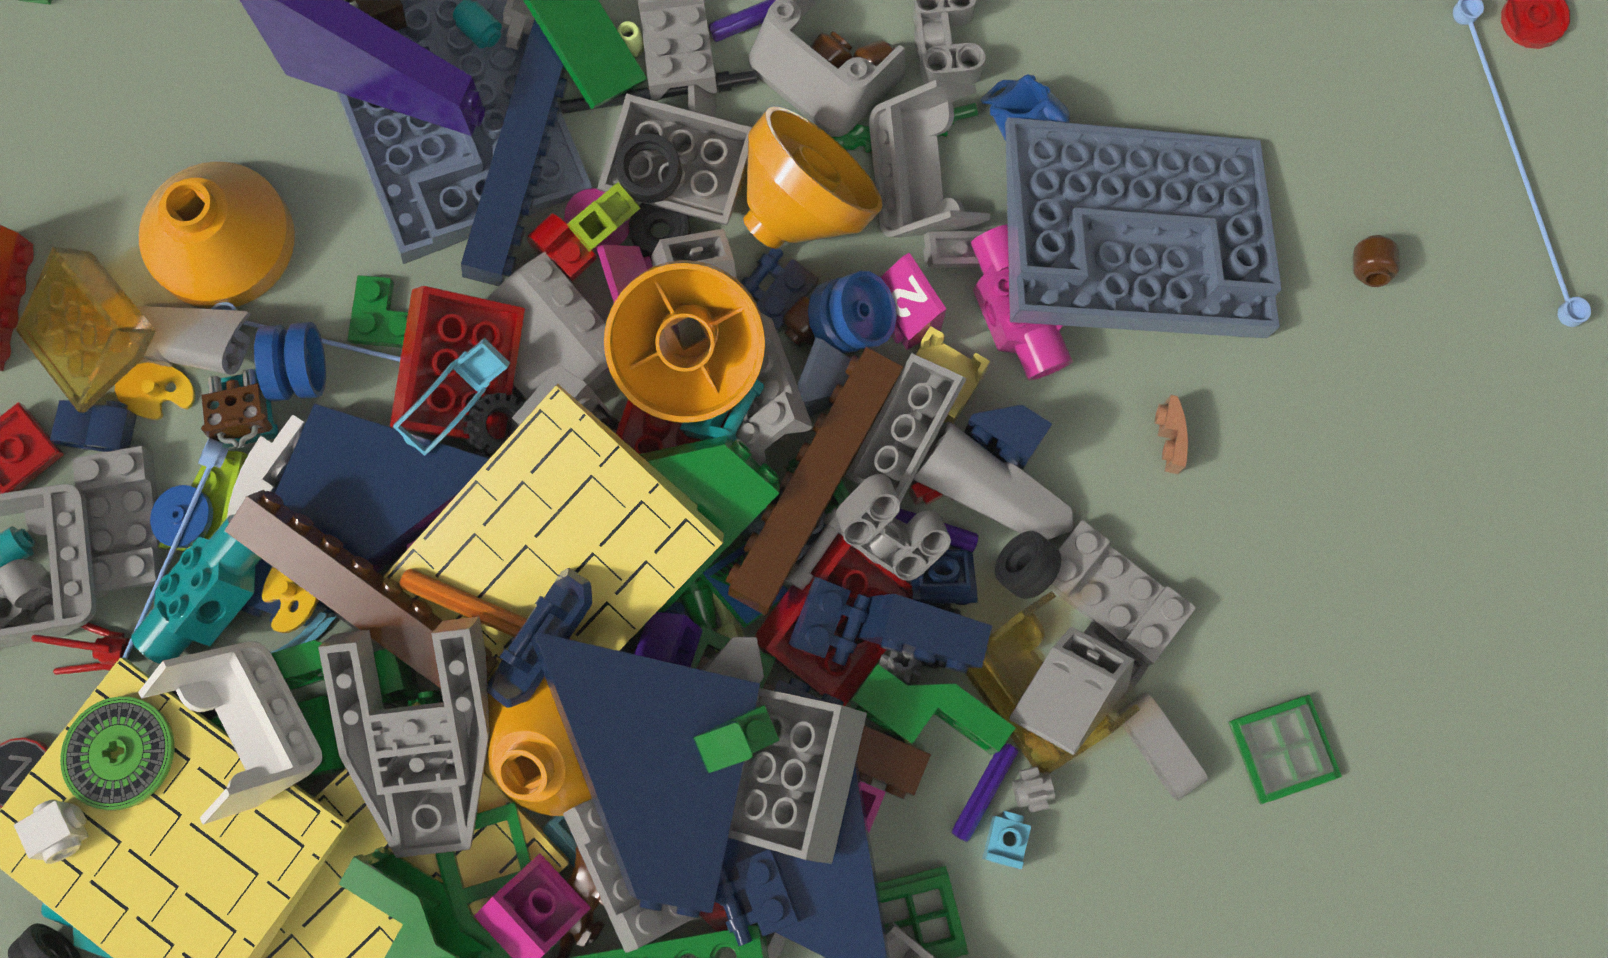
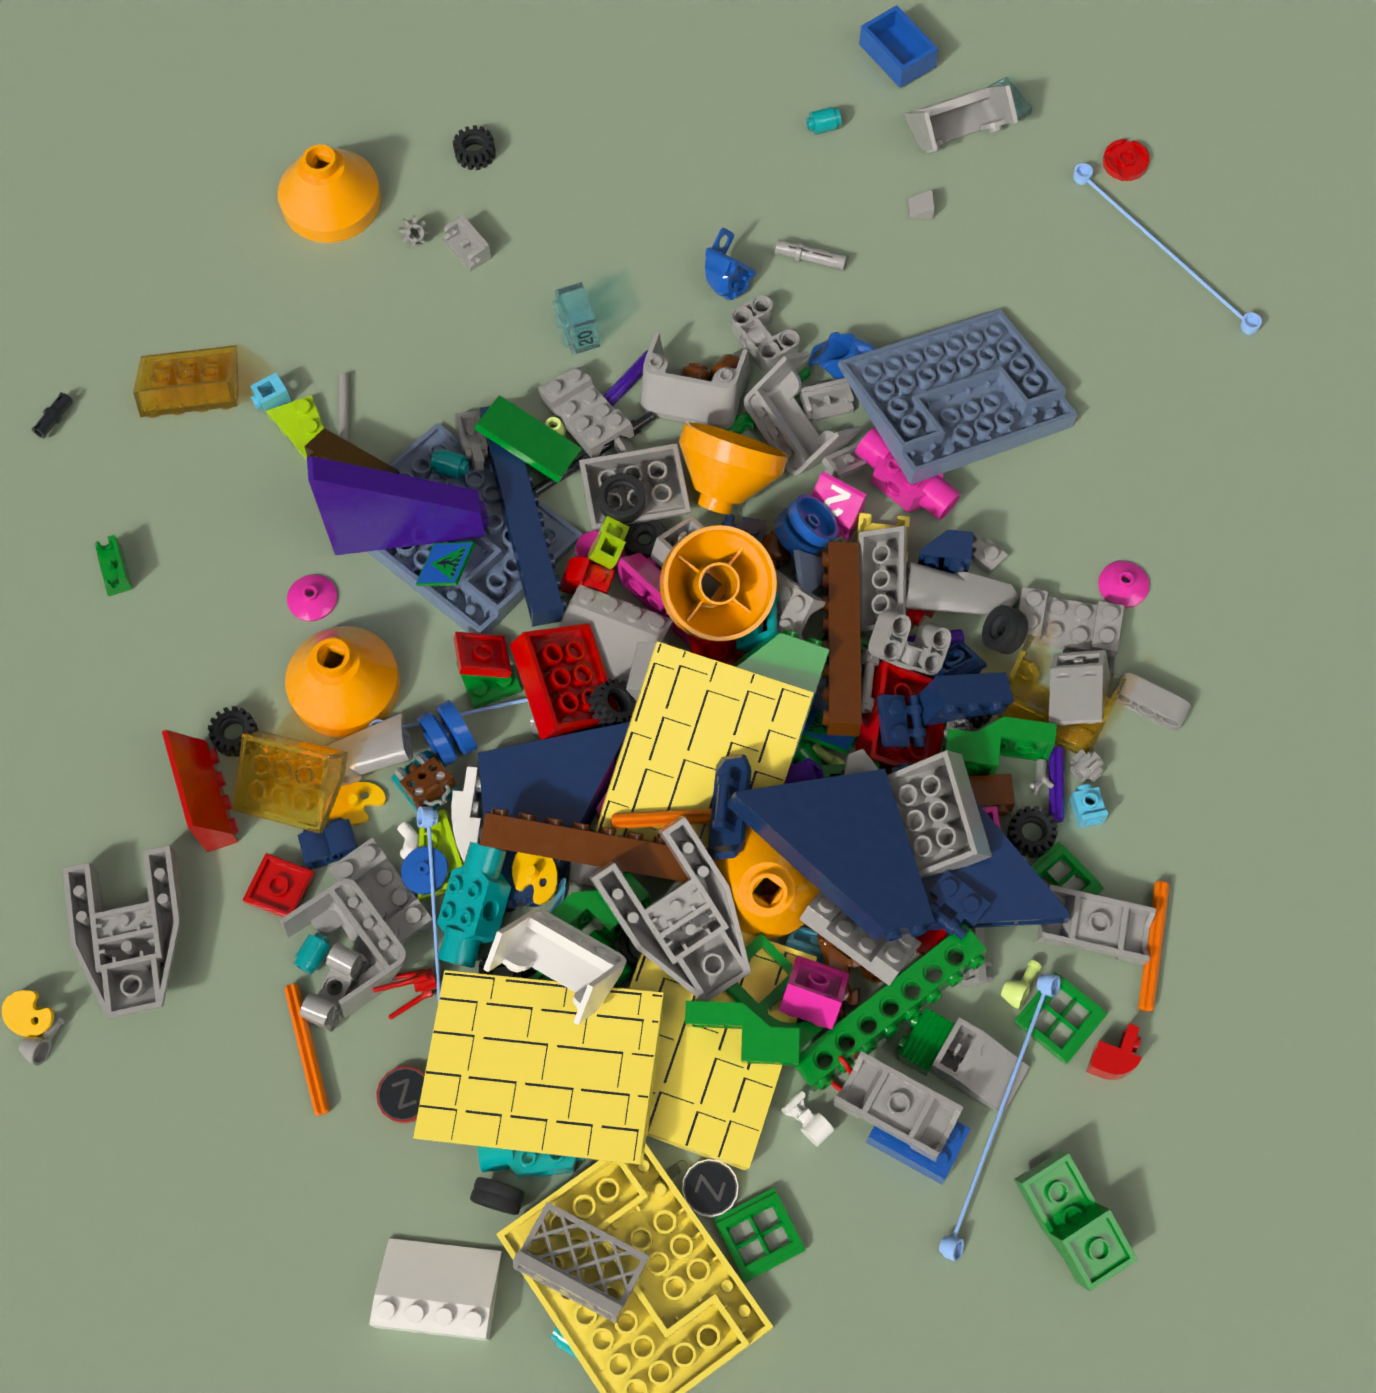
camera: 25 degrees left, 10 degrees down
(52, 831) = (469, 1093): white brick -> none
(56, 218) = (222, 722): none -> black tyre
(132, 776) = (481, 1048): piece -> none
(186, 473) = (411, 838): none -> white arm
(250, 122) = (315, 606): none -> dark pink dish
(384, 282) = (482, 654): none -> red plate
(400, 149) = (445, 564): none -> piece
(477, 368) = (584, 672): medium azure piece -> none
(736, 739) = (890, 806): green slope -> none
(942, 837) = (1039, 818): none -> black tyre
(970, 772) = (1040, 777): none -> light grey bar
(975, 158) = (827, 400): none -> light grey hinge
(1065, 453) = (987, 554): none -> light grey plate
(1173, 426) = (1048, 506): nougat slope -> none
(1203, 586) = (1122, 593): none -> dark pink dish
(1285, 749) = (1227, 667): clear piece -> none
(1376, 261) = (1113, 347): reddish brown head -> none

